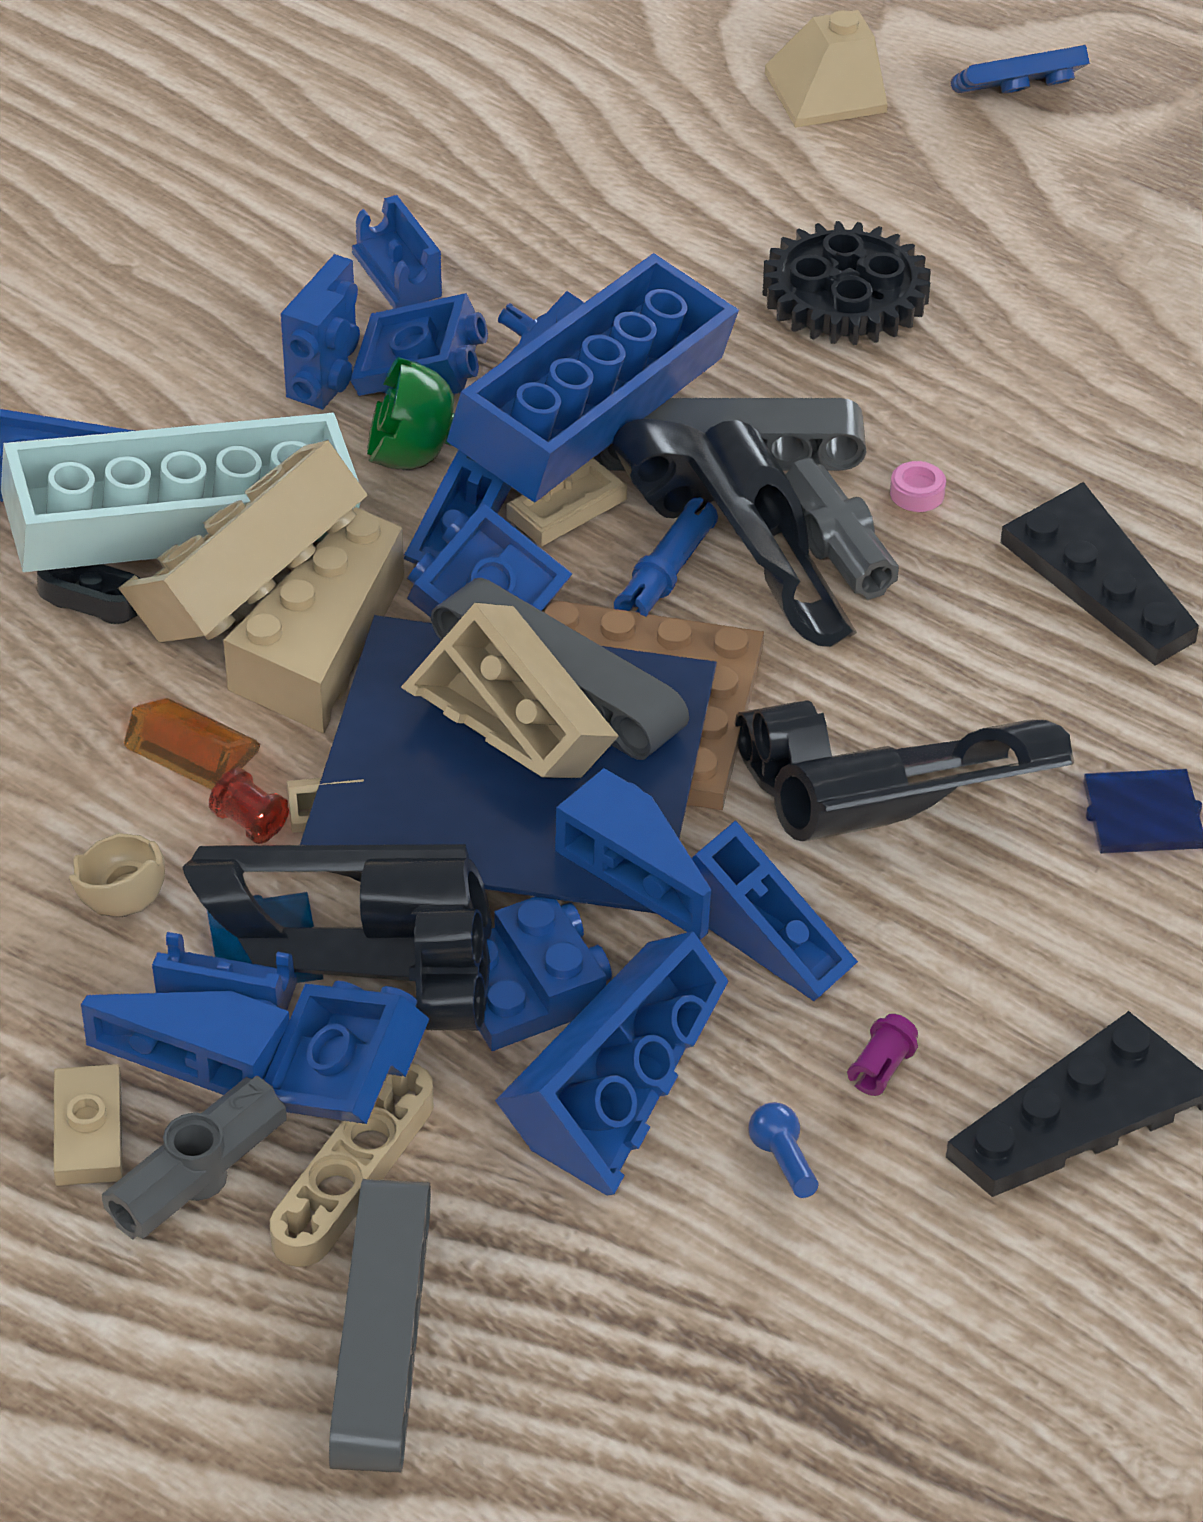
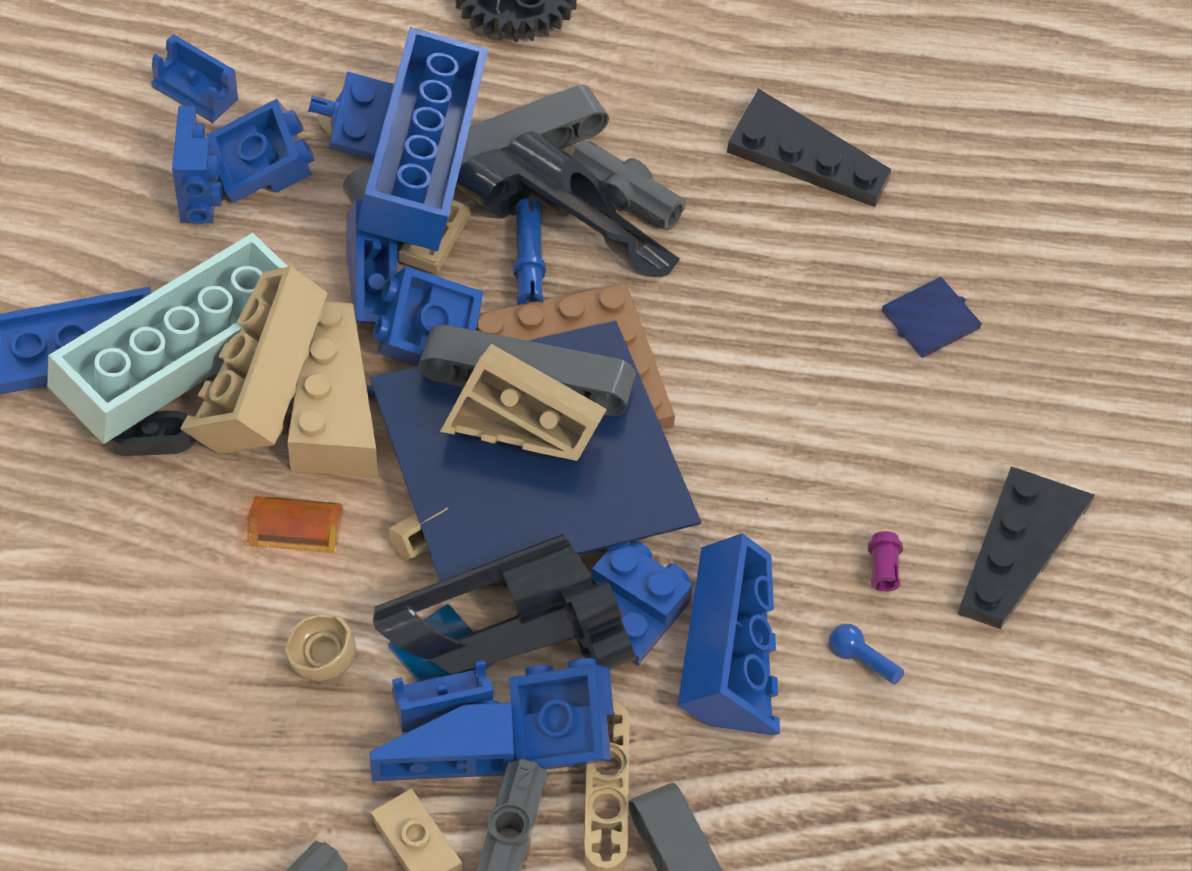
camera: 30 degrees left, 10 degrees up
(248, 805) = (372, 557): clear red bush -> none
(412, 418) = (292, 210): green cylinder -> none
(630, 845) = (662, 486): blue slope -> none
(767, 916) = (752, 493): blue slope -> none
(869, 788) = (762, 372): black panel -> none
(917, 486) = (653, 131): bright pink tile -> none

